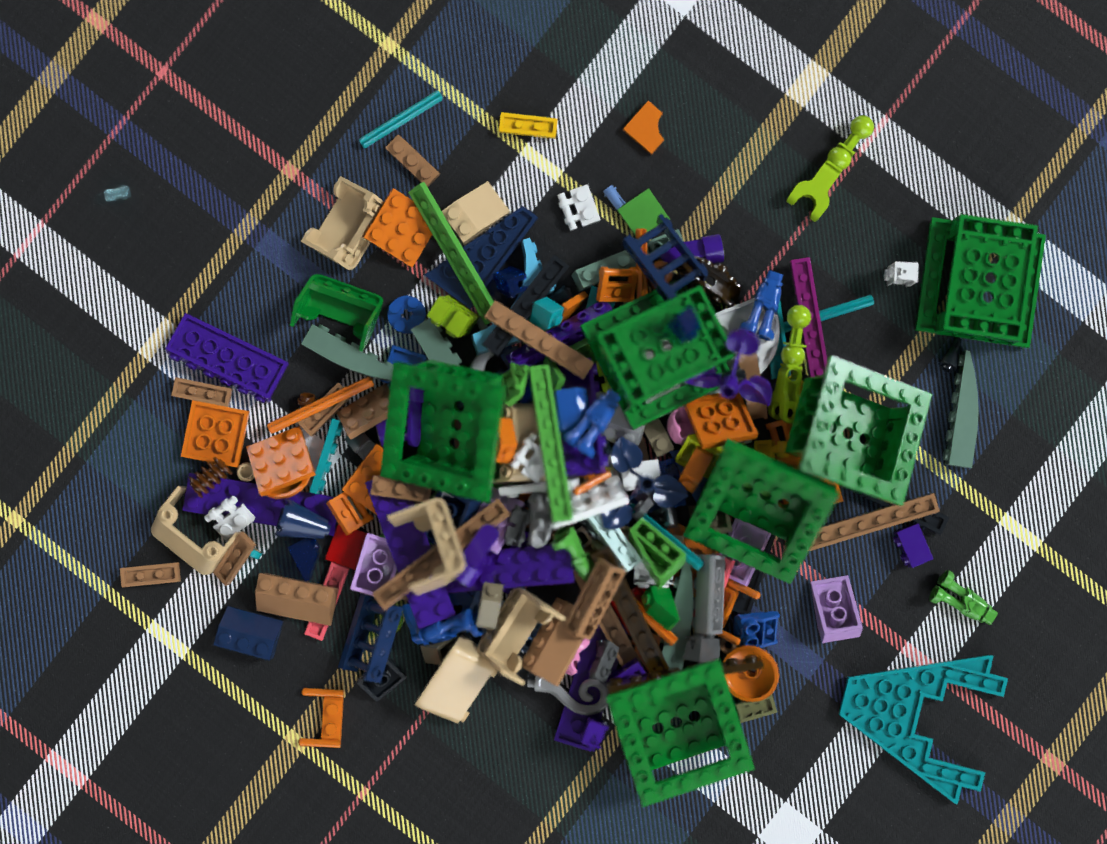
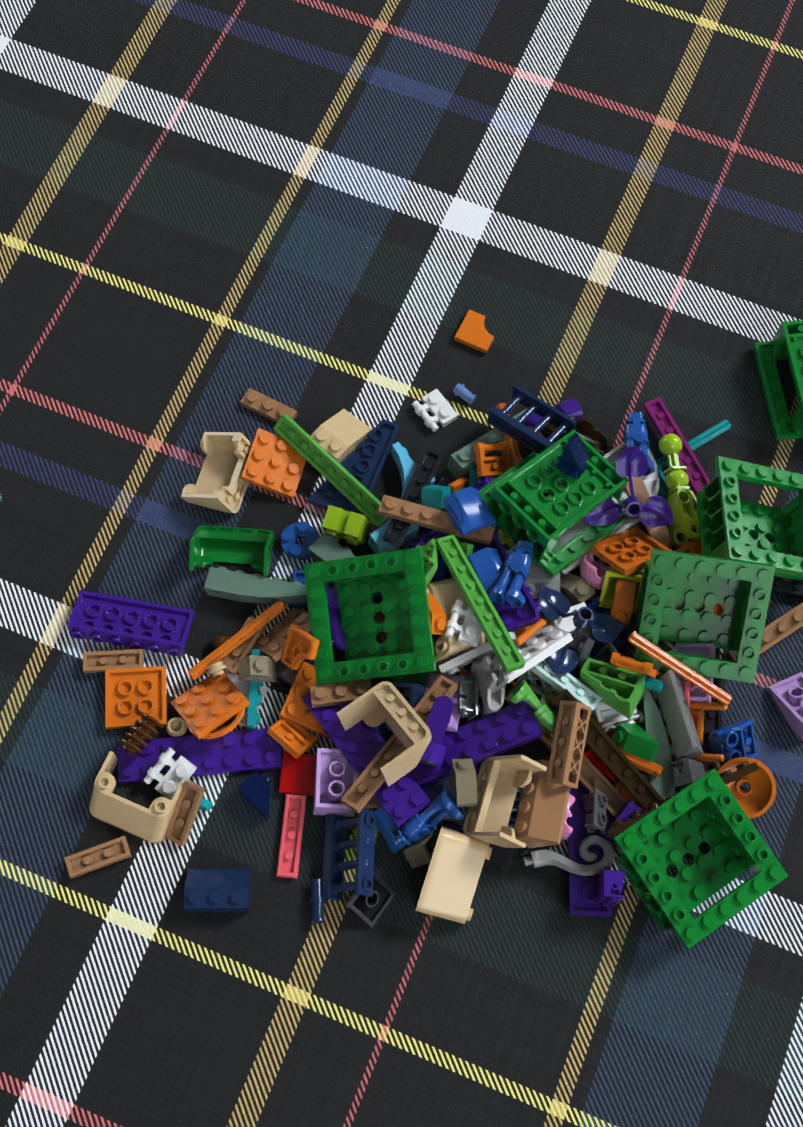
camera: 20 degrees left, 20 degrees down
(293, 430) = (216, 669): none -> tan plate
(295, 598) = (259, 838): medium nougat slope -> none
(301, 522) = (246, 755): dark blue cone -> none
(330, 443) = (257, 669): none -> dark tan slope
(331, 718) = (328, 959): orange plate -> none
(333, 669) = (317, 902): none -> dark blue pin
(372, 435) = (299, 647): none -> orange tile
(401, 119) = (248, 375): teal axle -> none
(507, 281) = (391, 482): clear blue hinge -> none
(528, 125) = (367, 353): yellow plate -> none
(570, 344) = (468, 511): none -> blue slope
(642, 212) = (492, 396): bright green tile -> none
(682, 542) = (629, 663): none -> orange plate
(728, 559) = (679, 668): none -> orange axle
(752, 710) = (768, 821): olive plate -> none
(838, 160) = (654, 315): lime piece -> none
(901, 273) = (747, 391): white hinge -> none

